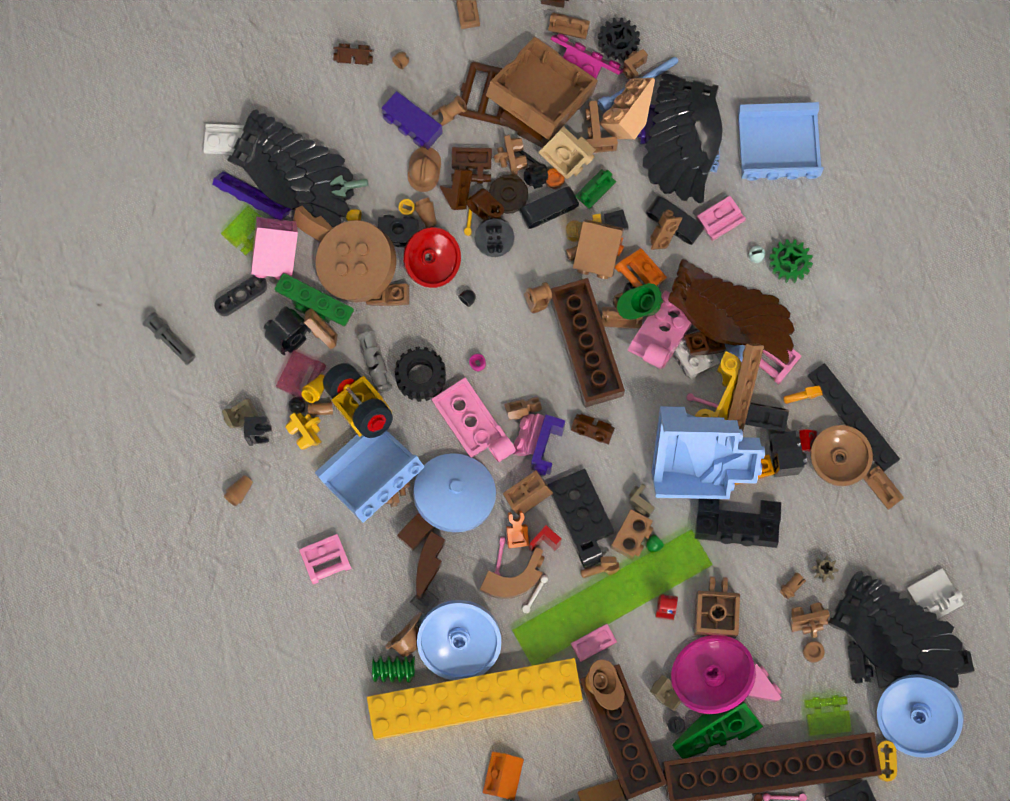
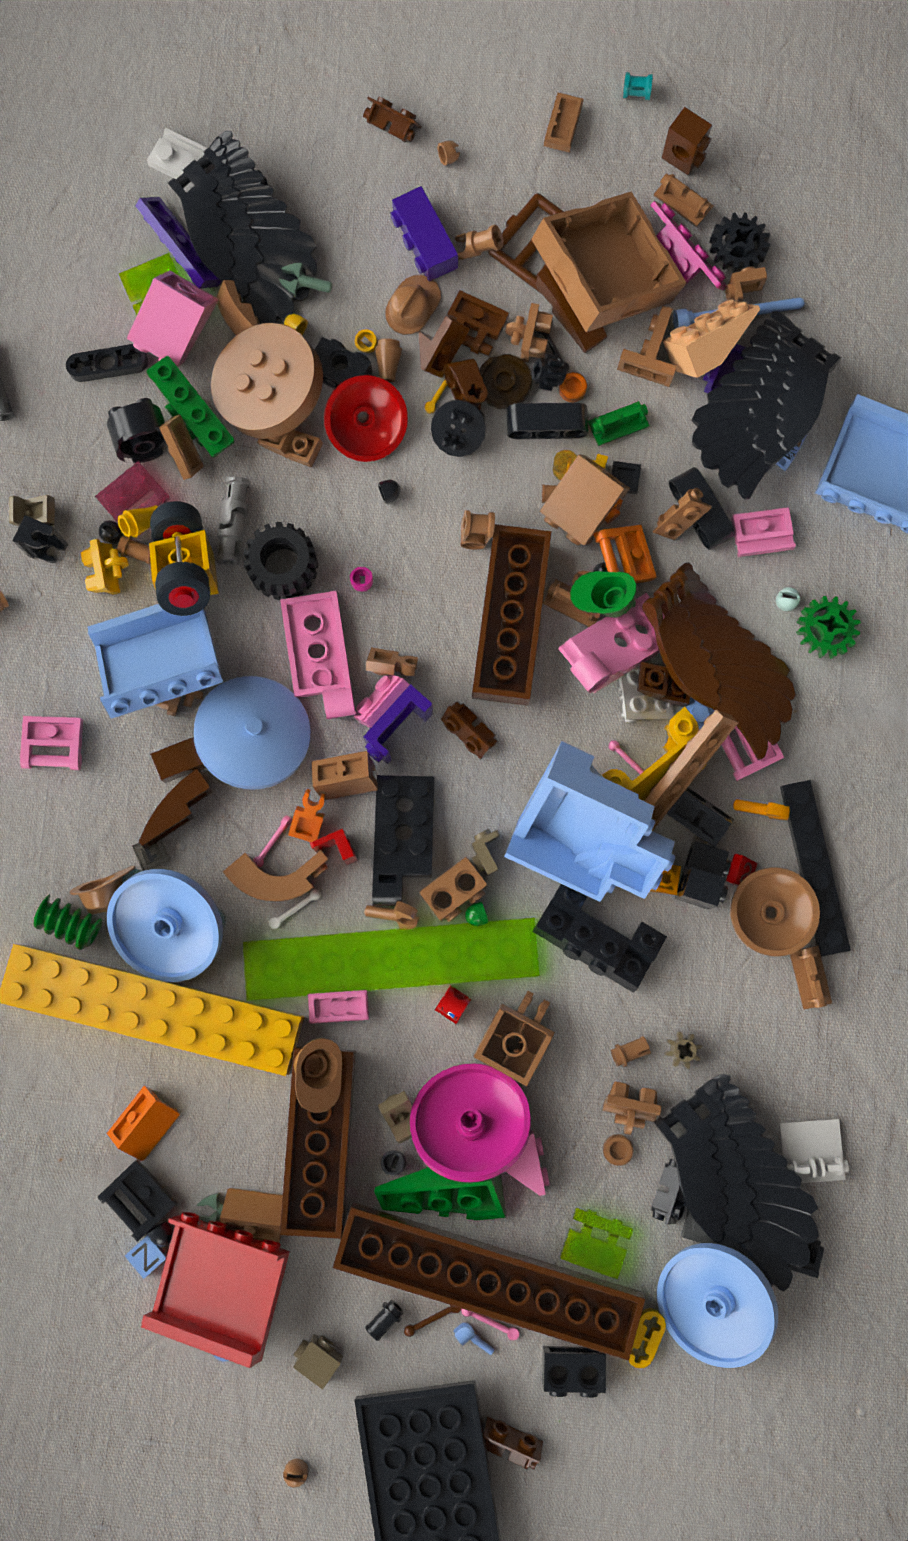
camera: 25 degrees right, 5 degrees up
(567, 153) = (602, 358): tan plate -> none

